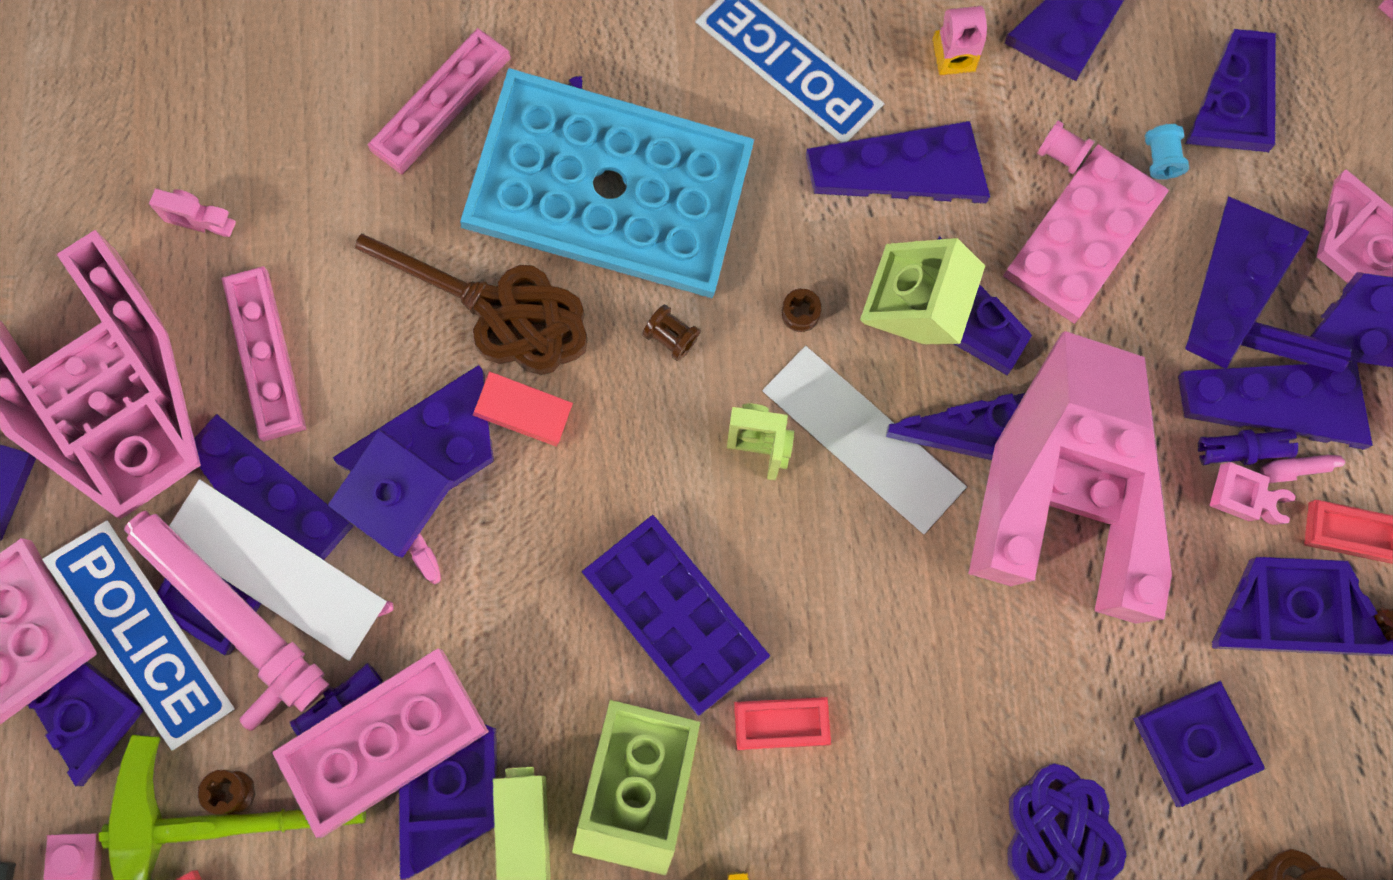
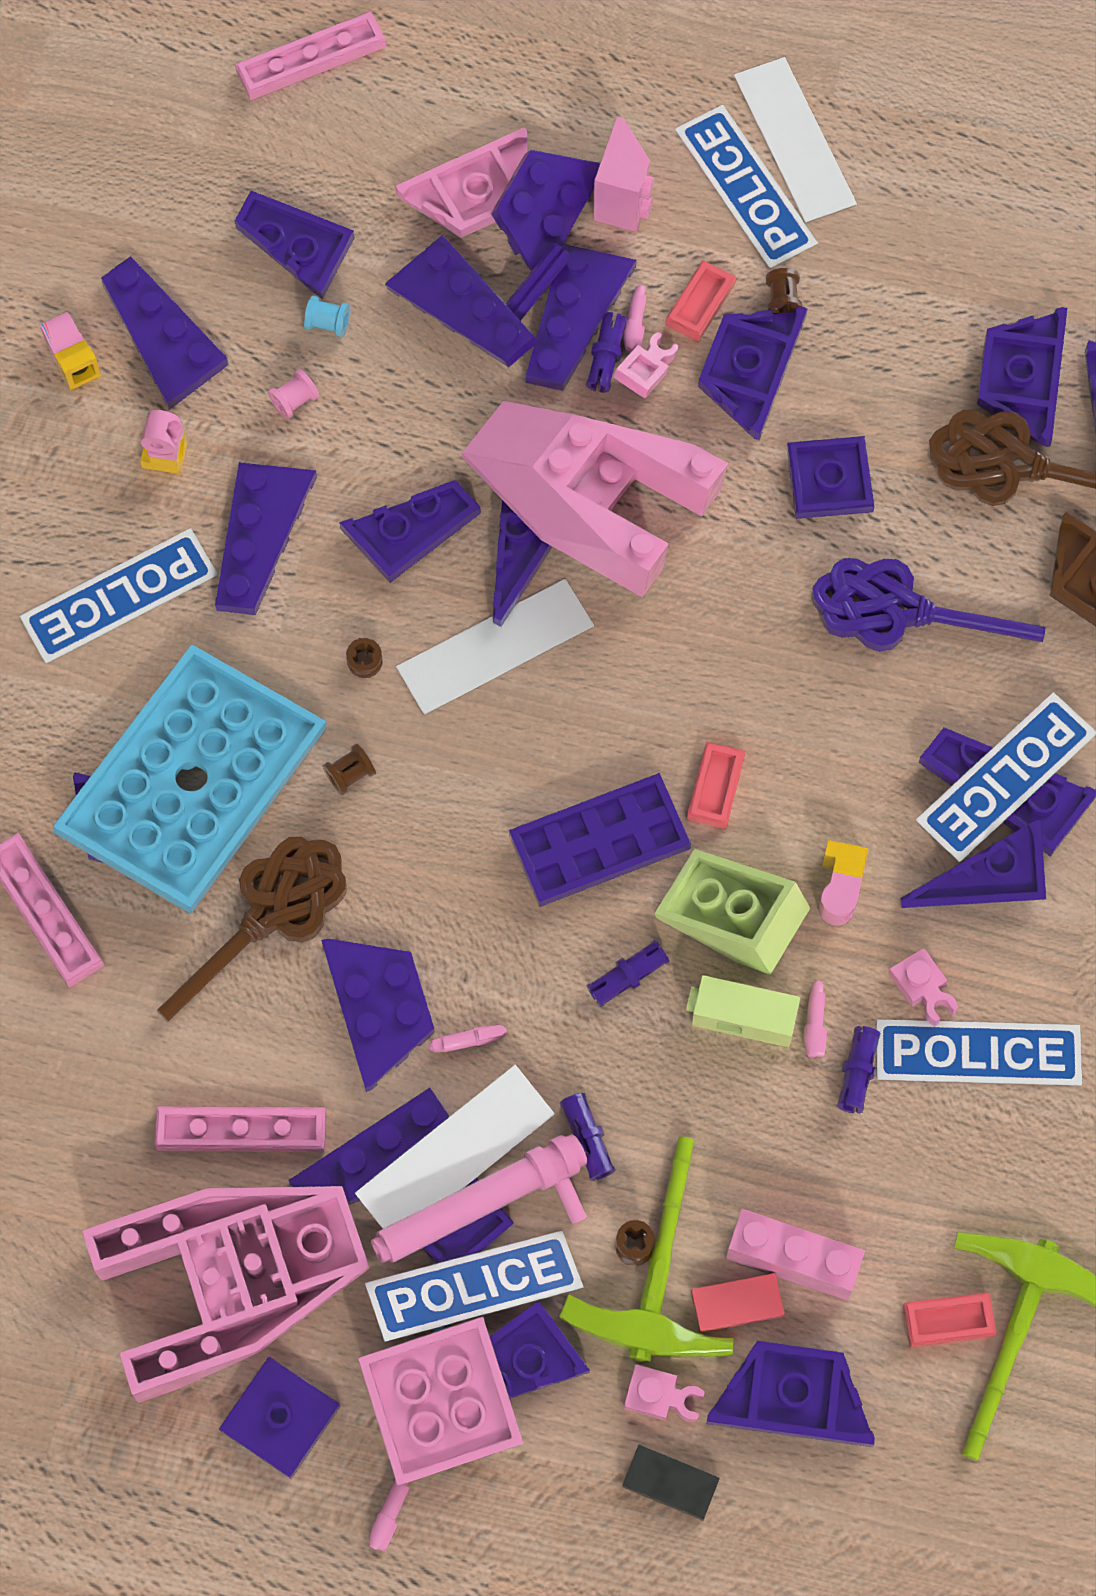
camera: 70 degrees left, 5 degrees down
(185, 211) = (76, 1163): bright pink plate -> none
(379, 743) = (634, 1097): bright pink plate -> none
(390, 493) = (418, 1040): dark purple plate -> none
(448, 806) = (679, 1063): dark purple wing -> none
(522, 409) = (376, 913): coral tile -> none
(531, 691) = (627, 973): none -> dark purple pin
(763, 432) = (477, 709): yellowish green bracket -> none
(924, 290) = (390, 549): yellowish green slope -> none
(1086, 233) = (376, 407): bright pink plate -> none

